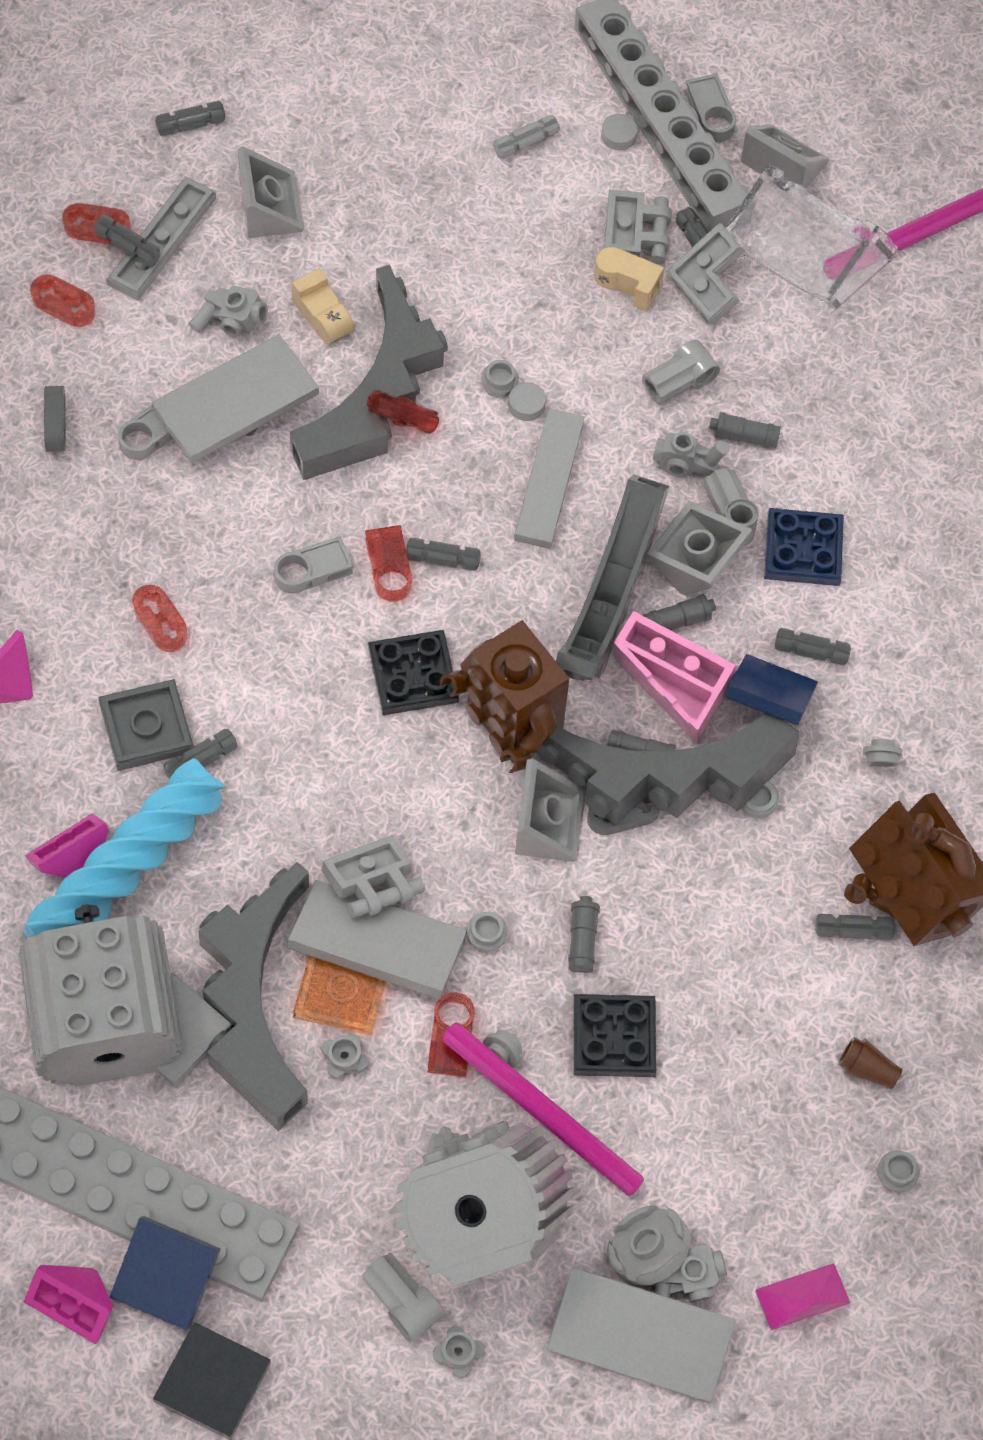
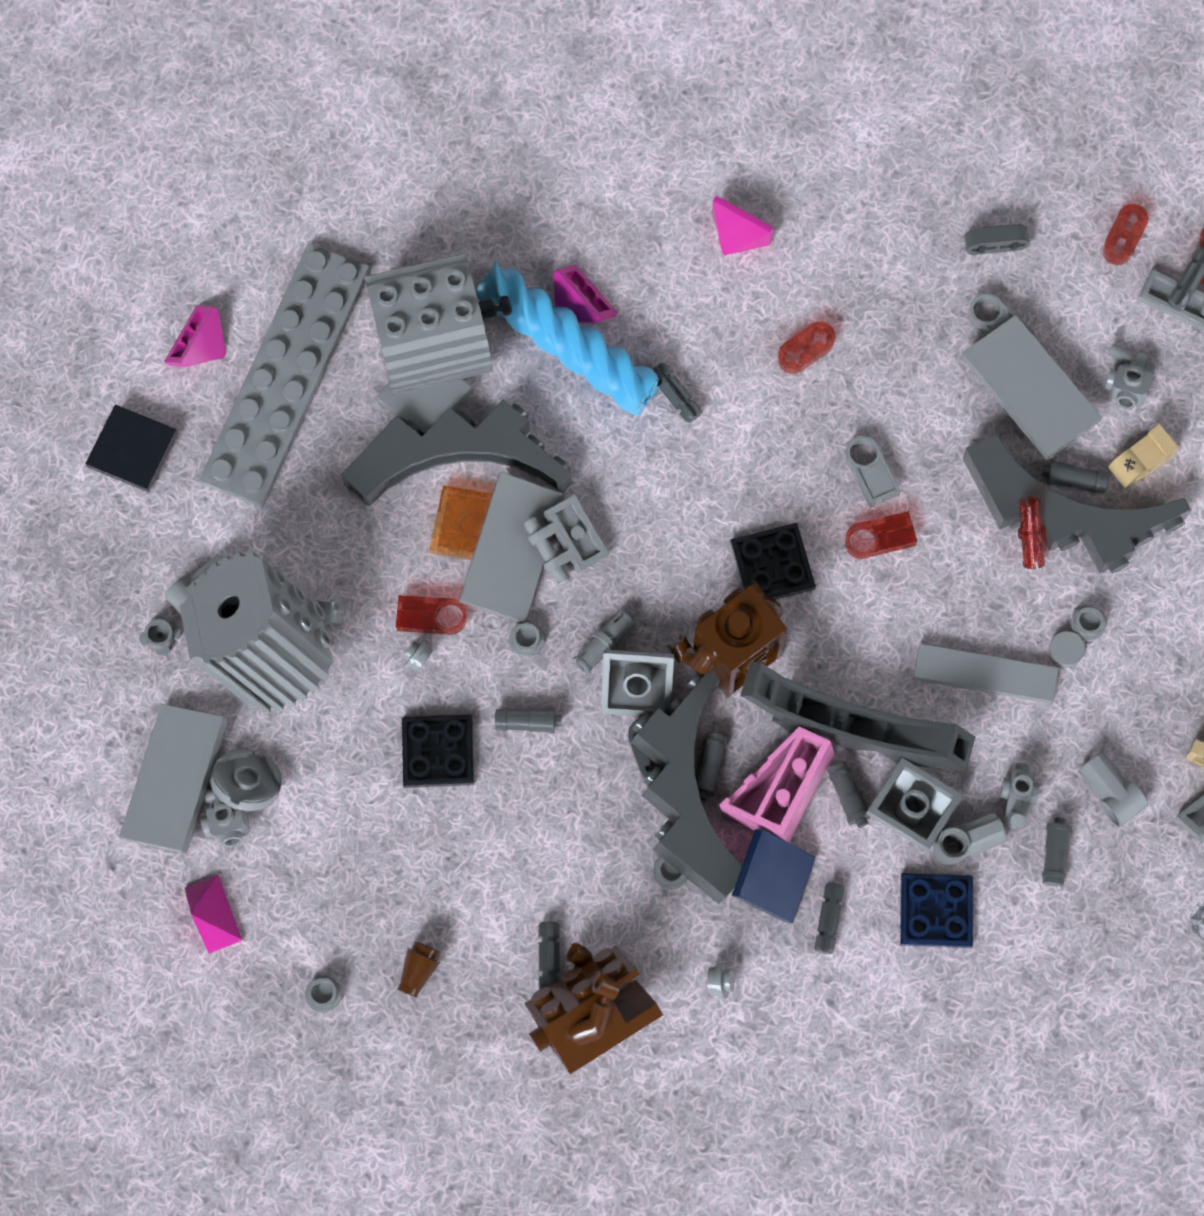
camera: 95 degrees right, 10 degrees up
(145, 724) = (703, 346): dark grey tile -> none
(165, 1273) = (213, 402): dark blue tile -> none
(336, 375) = (1077, 477): none -> dark grey piece
(344, 1044) = (406, 521): light grey plate -> none
(443, 554) = (894, 582): dark grey axle -> none
(496, 847) = (603, 639): none -> light grey pin
(543, 1109) = (364, 690): dark pink axle -> none

